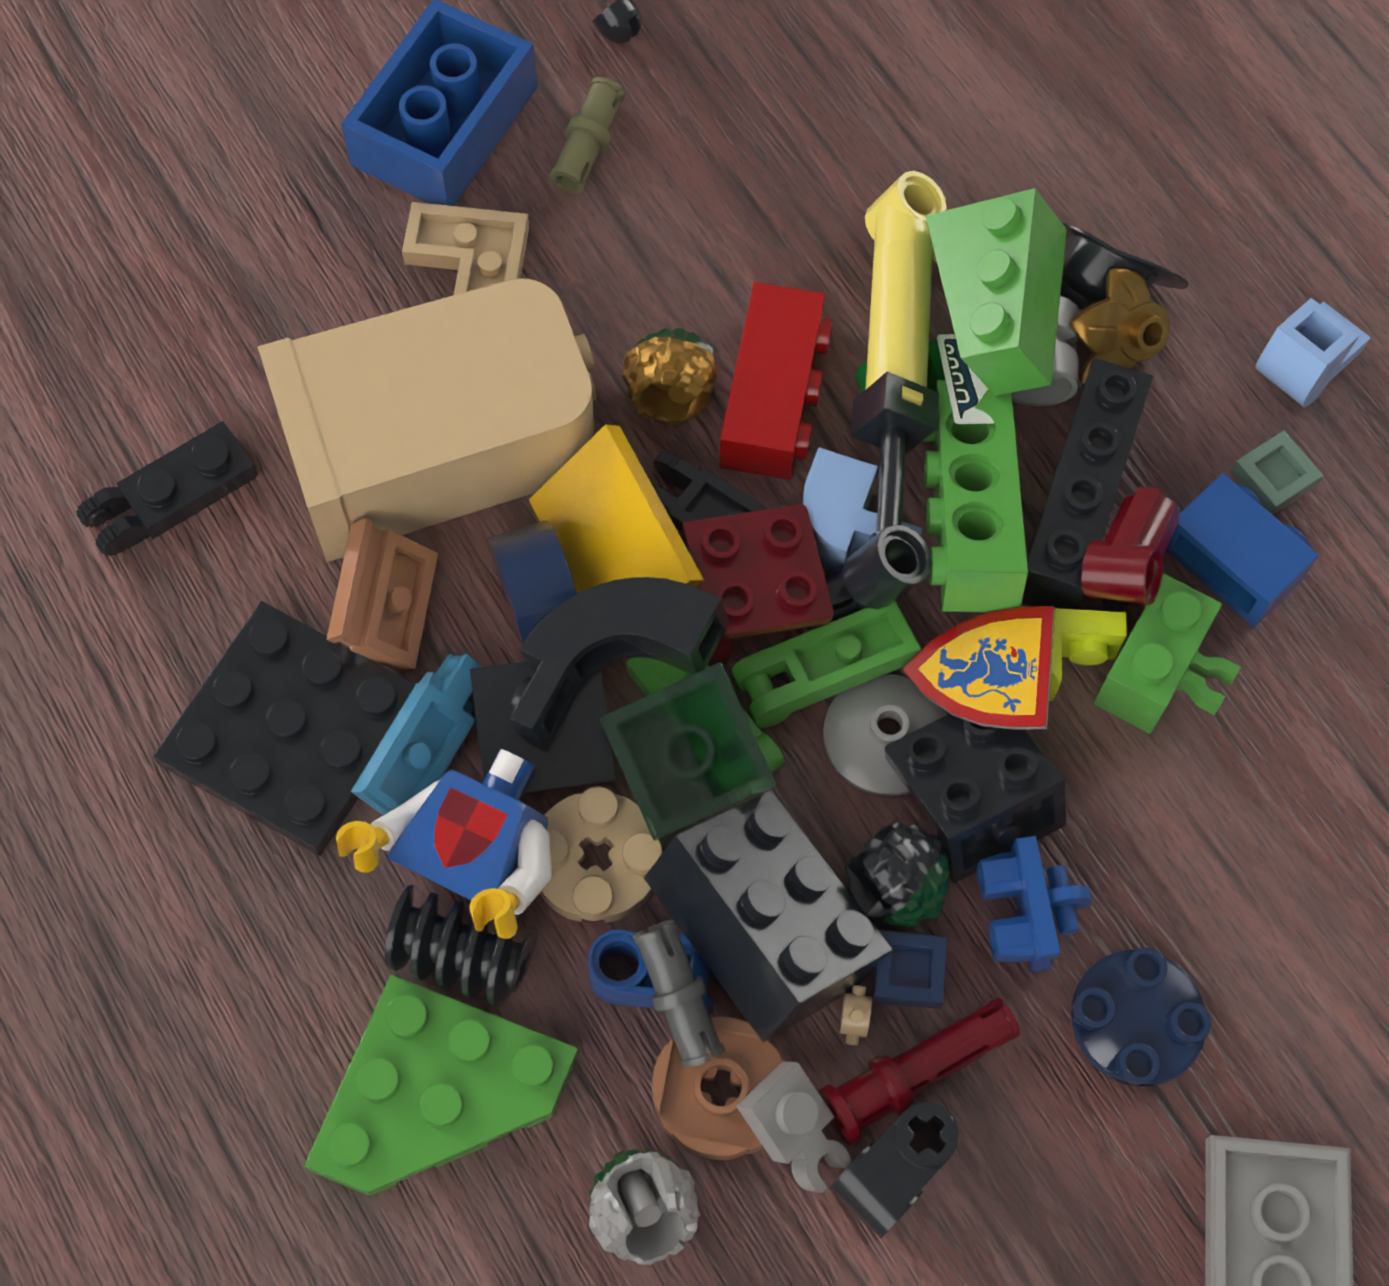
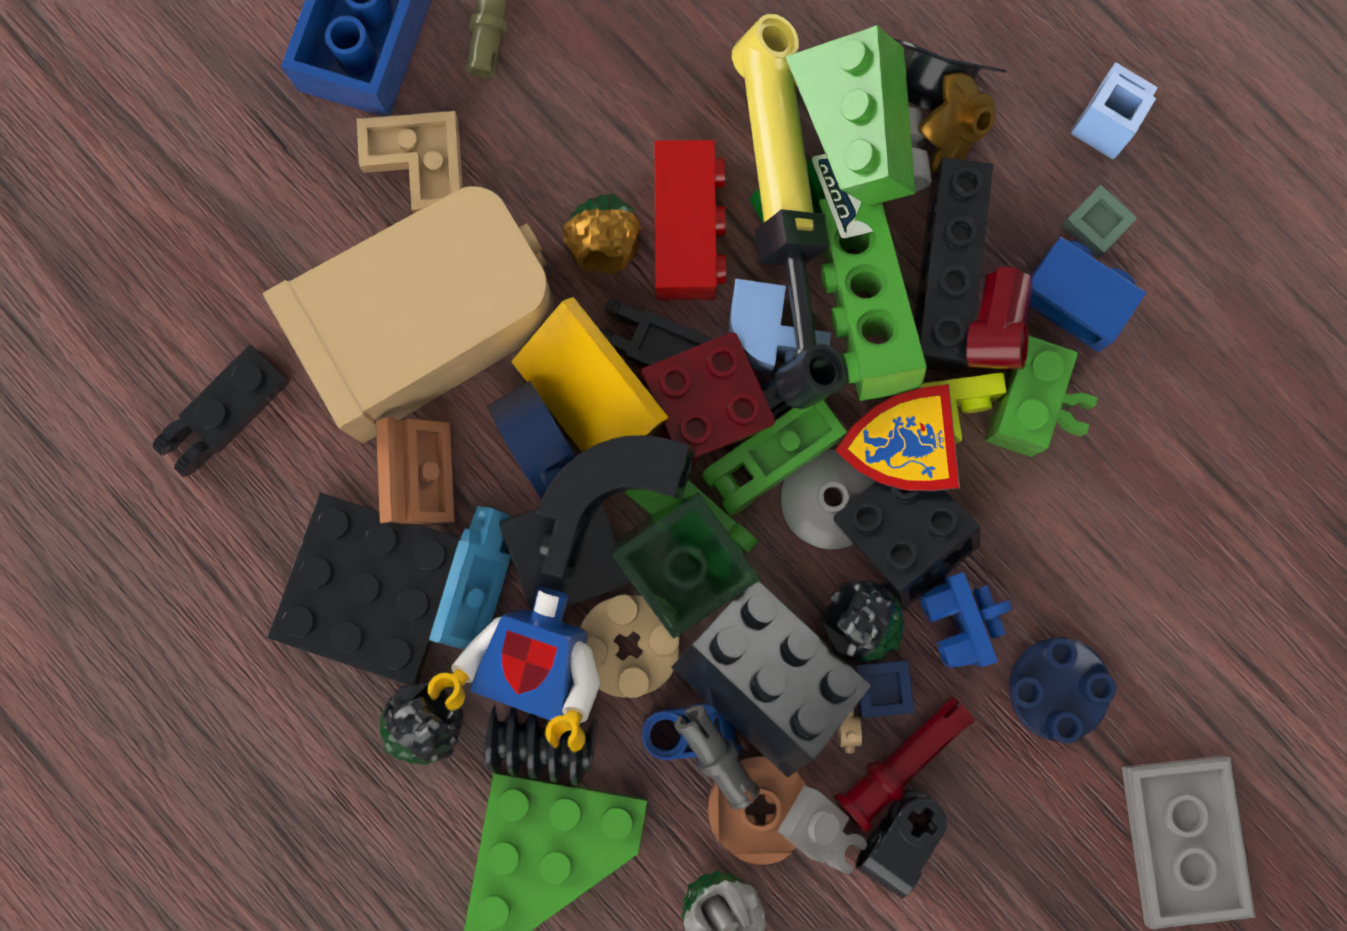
camera: 10 degrees left, 15 degrees up
(315, 892) = (419, 727): none -> black piece

